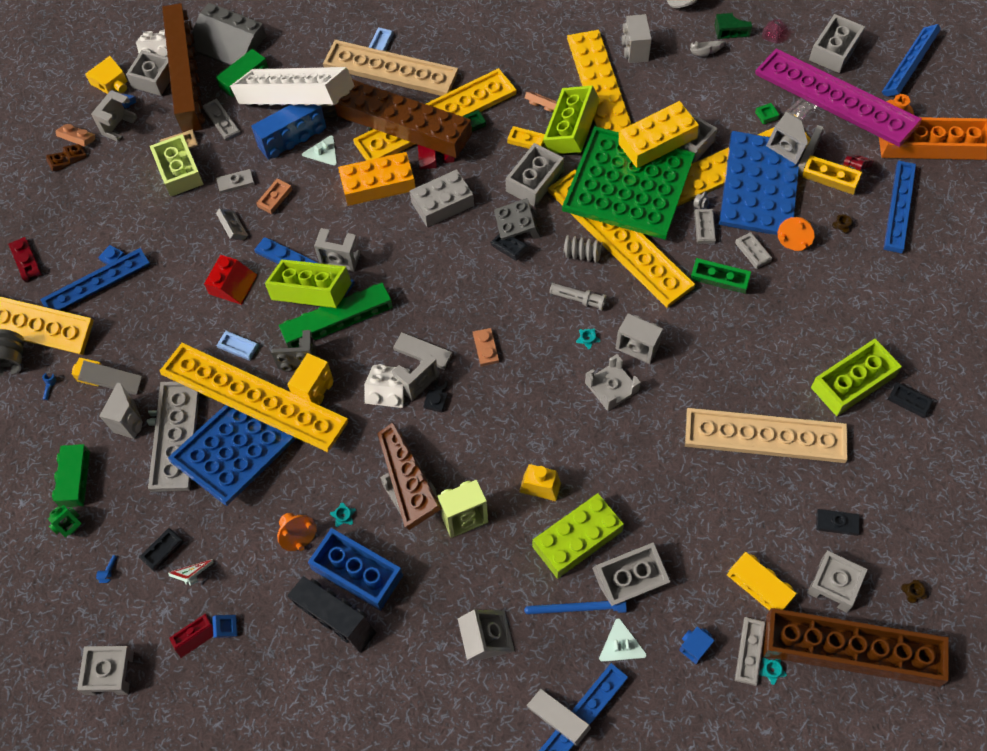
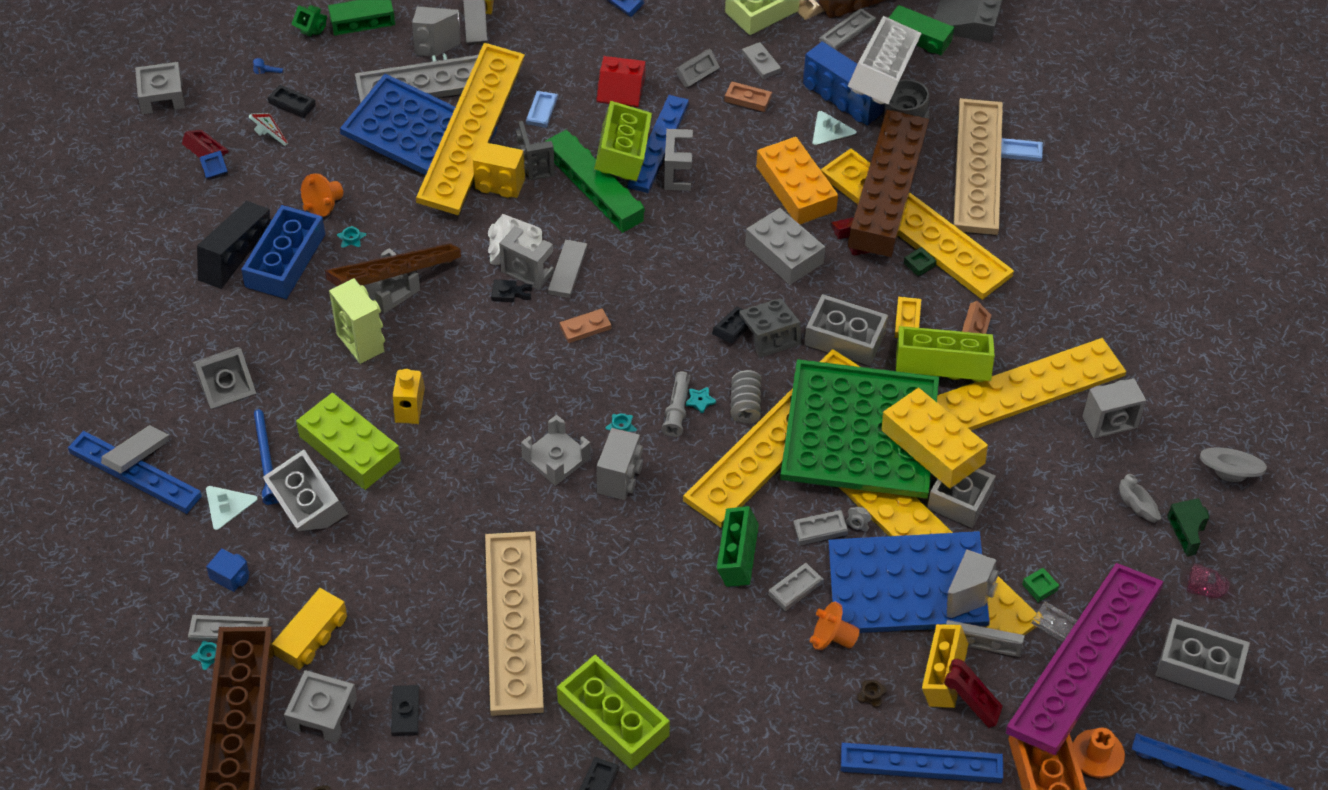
camera: 75 degrees right, 10 degrees down
(576, 276) = (697, 404): none -> teal plate

